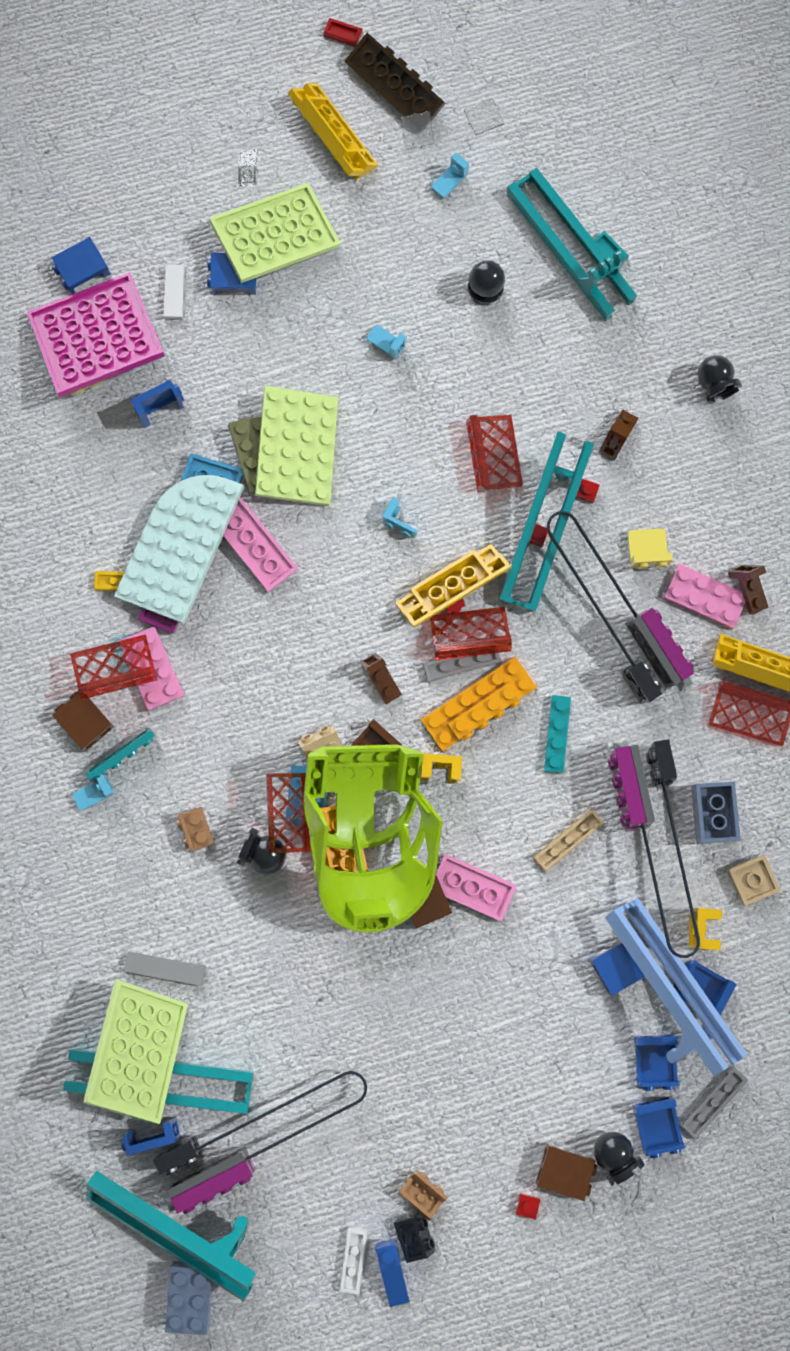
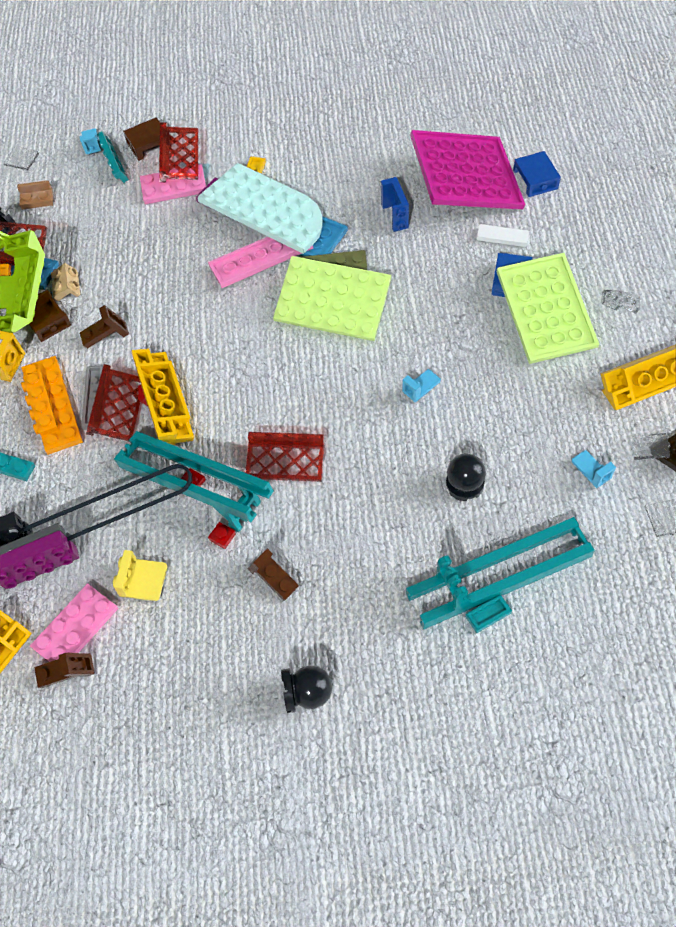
camera: 110 degrees right, 20 degrees down
(393, 510) = (242, 359): medium azure bracket -> none

